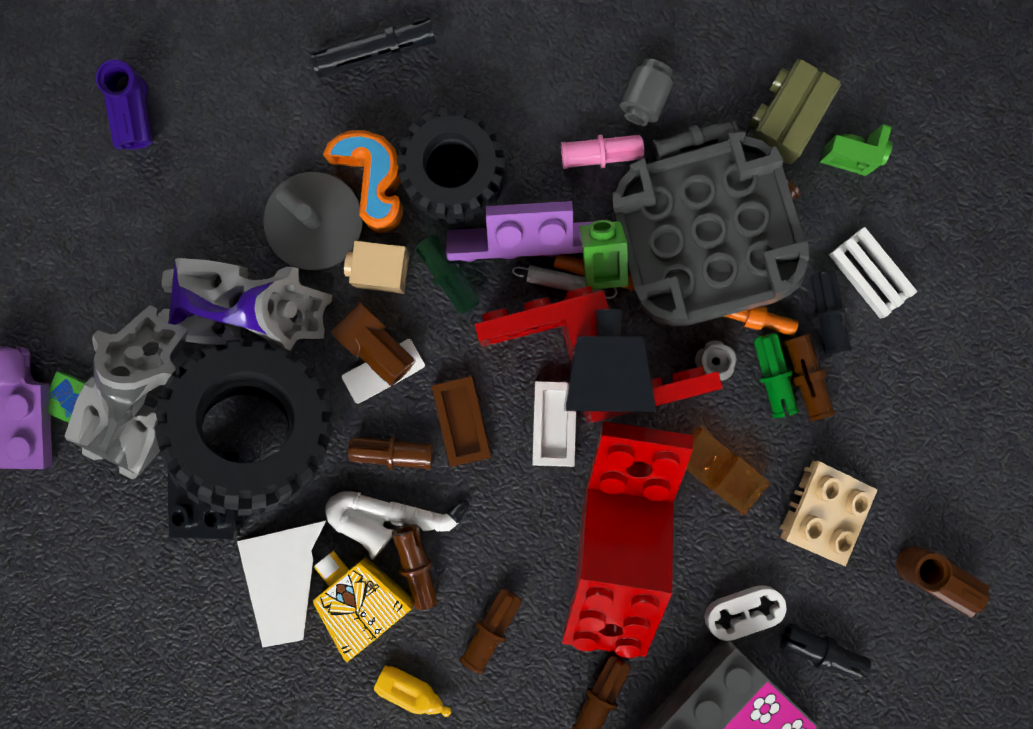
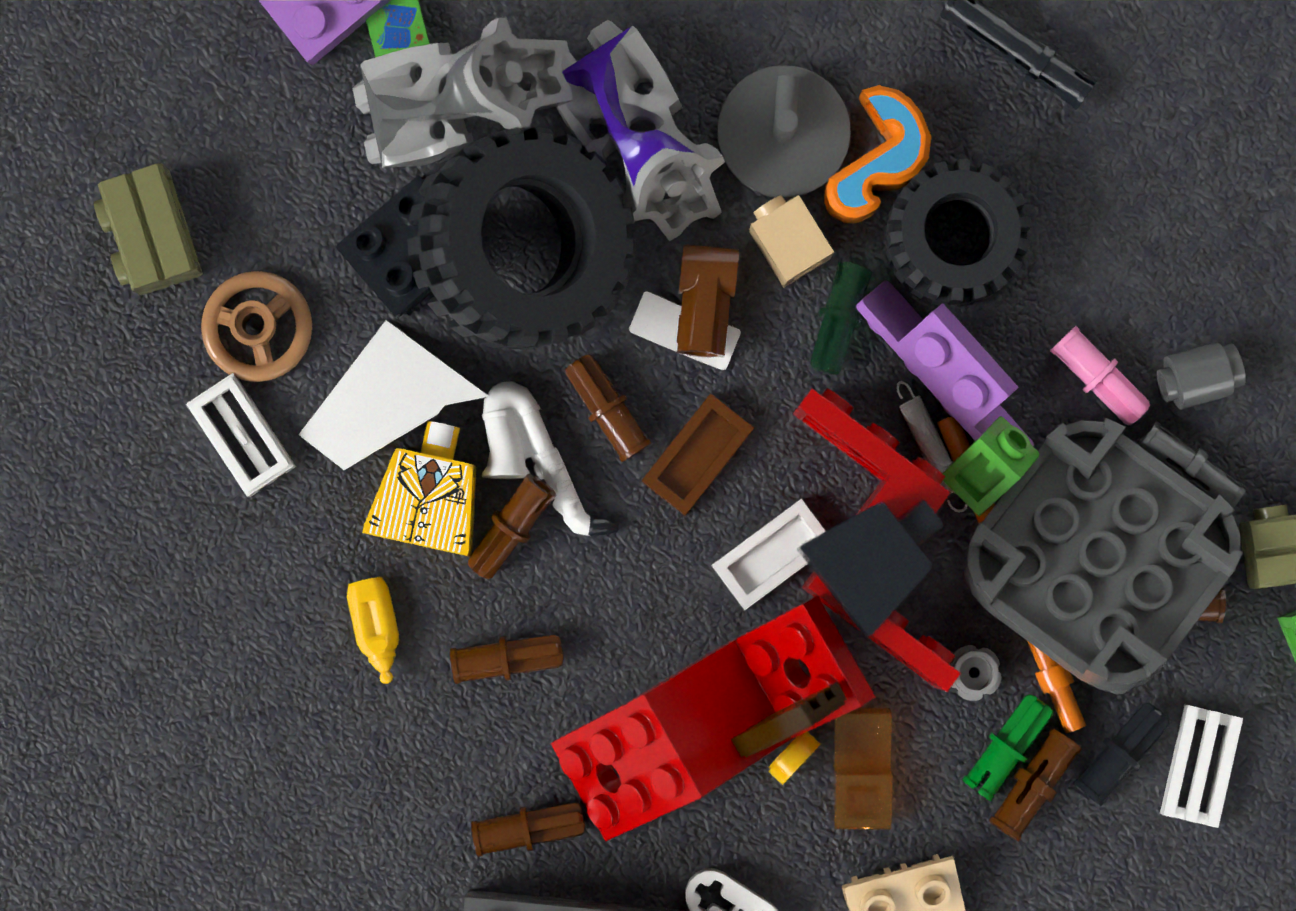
camera: 50 degrees right, 0 degrees up
(65, 644) = (147, 230): none -> olive brick
(164, 632) = (237, 319): none -> medium nougat piece
(234, 666) = (267, 474): none -> white tile
(666, 498) = (790, 720): none -> dark brown tile
(684, 508) = (793, 757): none -> yellow tile

